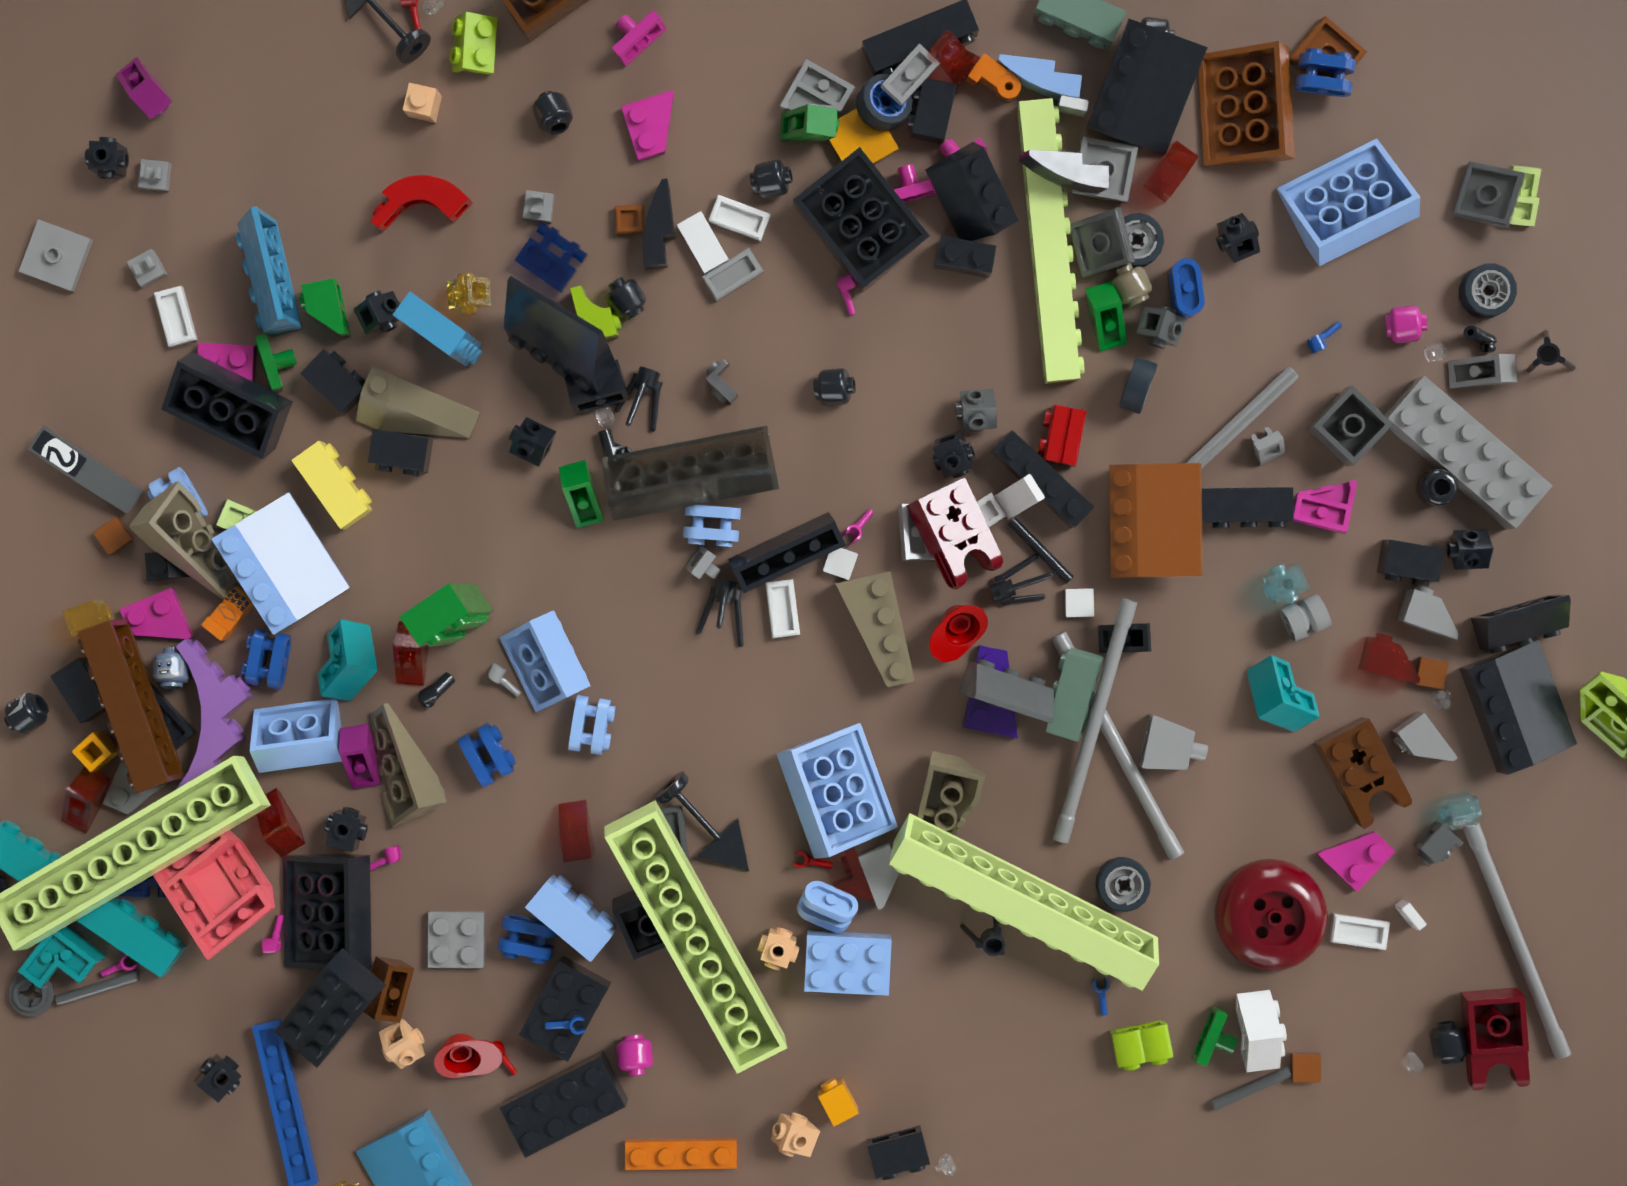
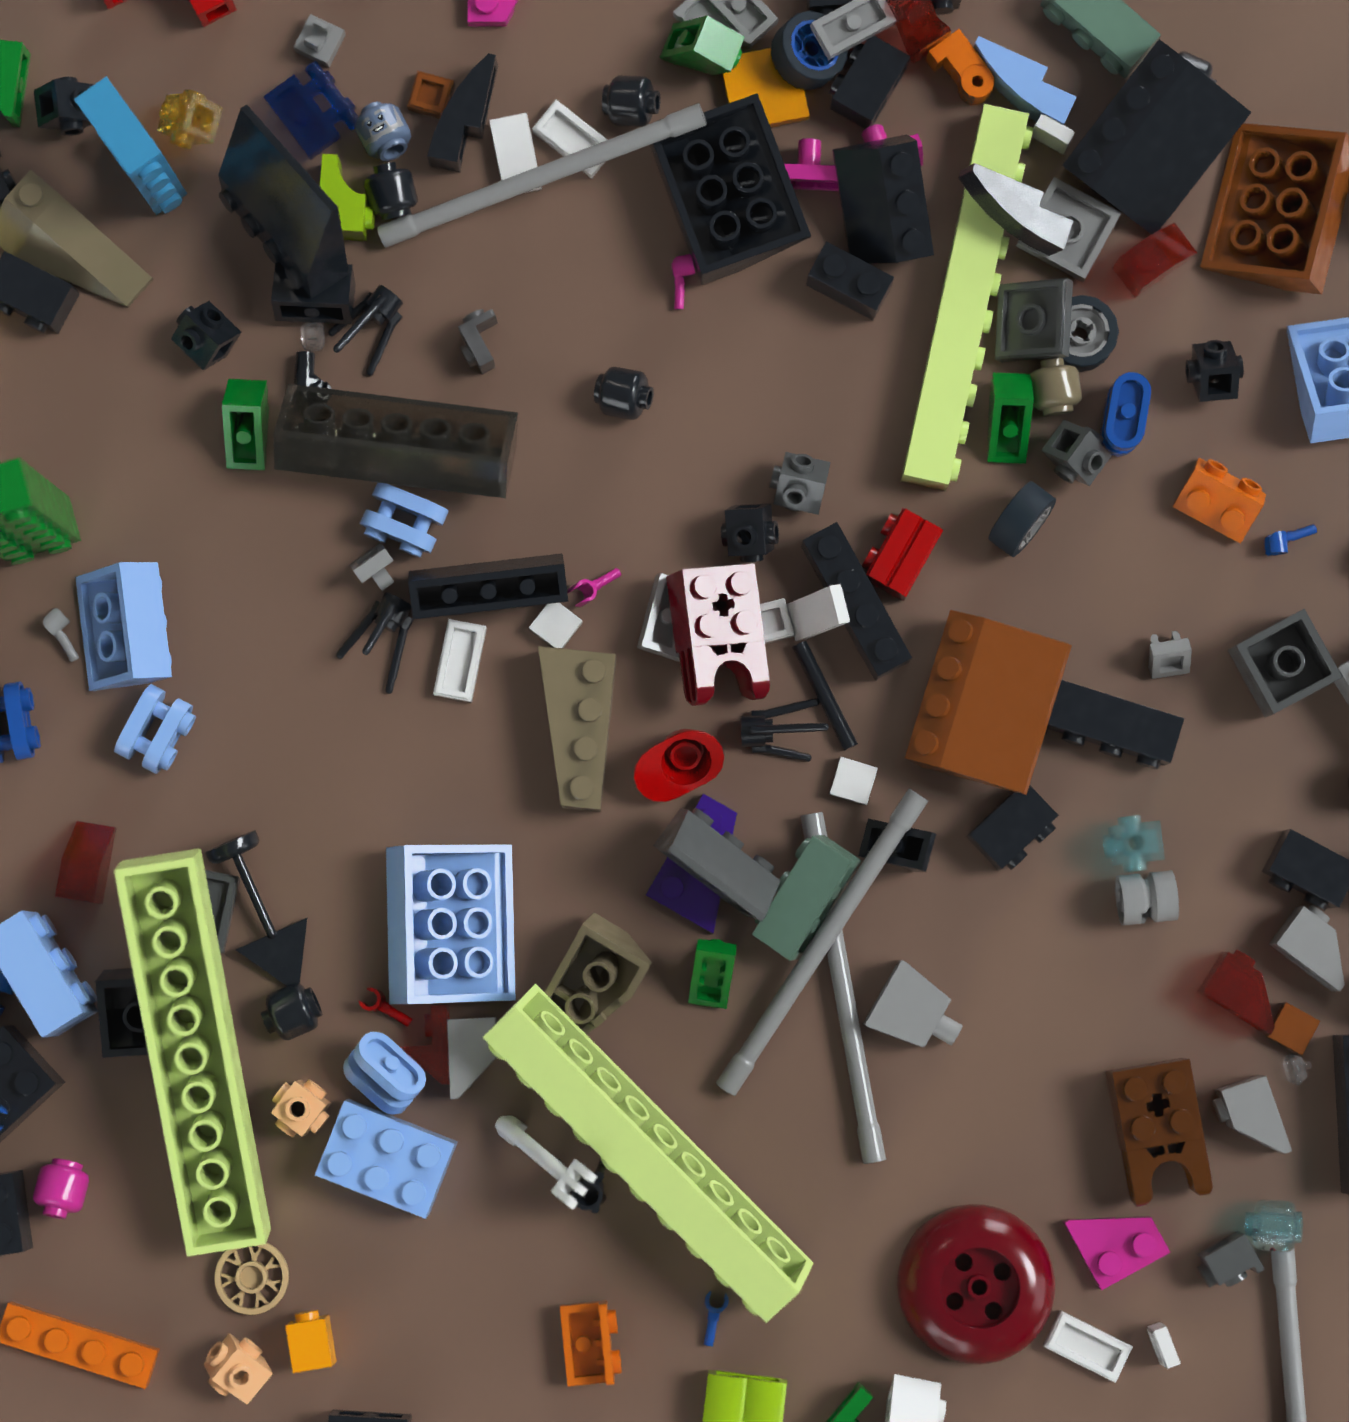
camera: 20 degrees right, 5 degrees down
(605, 257) = (383, 131): none -> sand blue head
(732, 274) = (541, 208): light grey tile -> none
(749, 885) = (291, 1011): none -> black head
(783, 1072) = (252, 1278): none -> tan wheel
(808, 191) = (670, 126): none -> light grey piece
(978, 939) = (568, 1178): none -> white hinge
(1024, 1040) = (588, 1343): none -> orange bracket
(1027, 765) = (712, 973): none -> green tile
(1123, 869) = (769, 1171): wheel -> none
(1198, 600) = (1012, 827): none -> black brick
(1244, 417) = (1151, 609): light grey axle -> none
(1269, 325) = (1220, 499): none -> orange bracket
(1278, 697) = (1077, 992): teal panel -> none
(1326, 507) = (1220, 761): dark pink wing -> none

